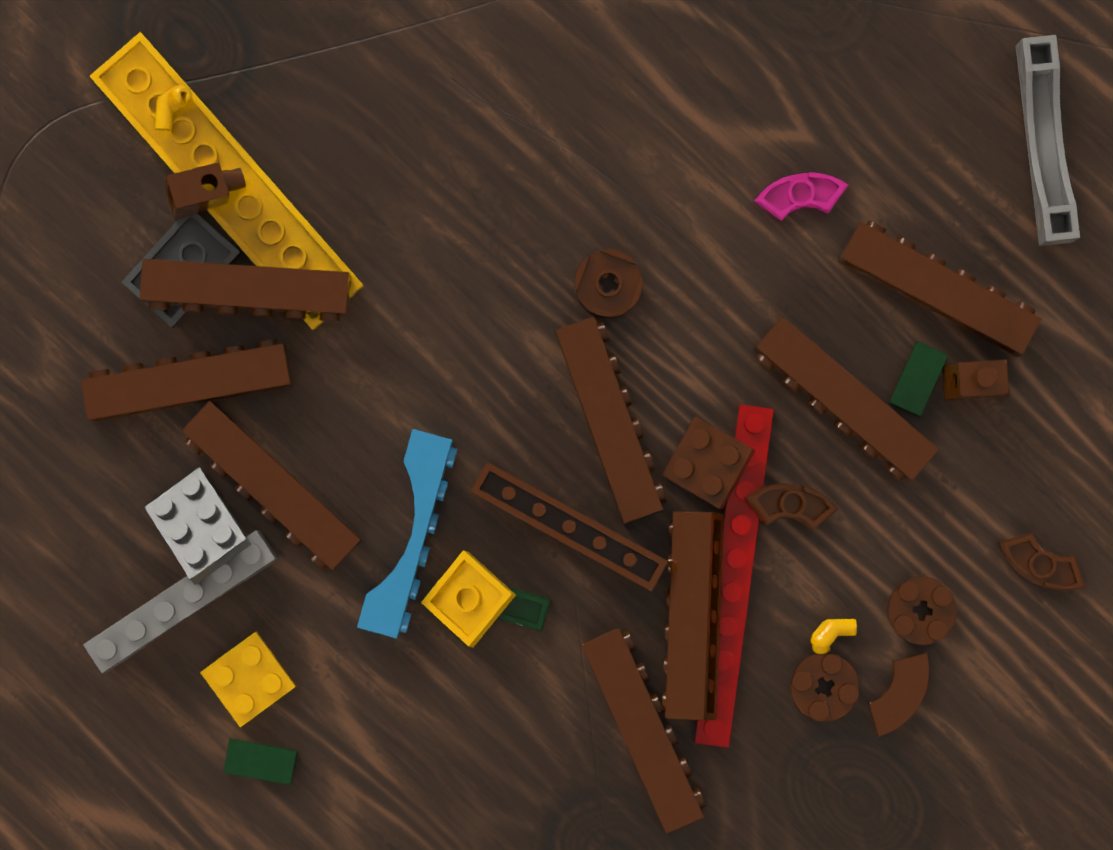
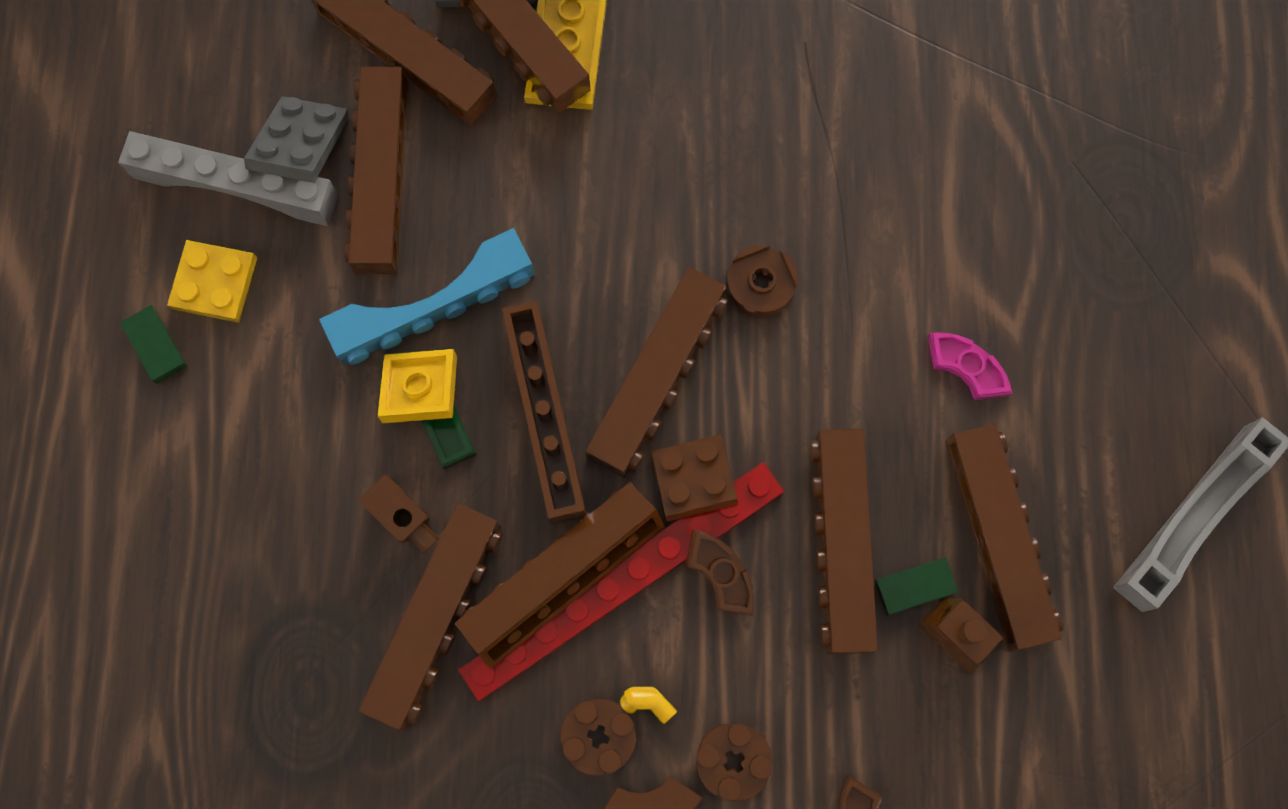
camera: 50 degrees right, 10 degrees down
(536, 690) = (385, 503): none -> reddish brown torso

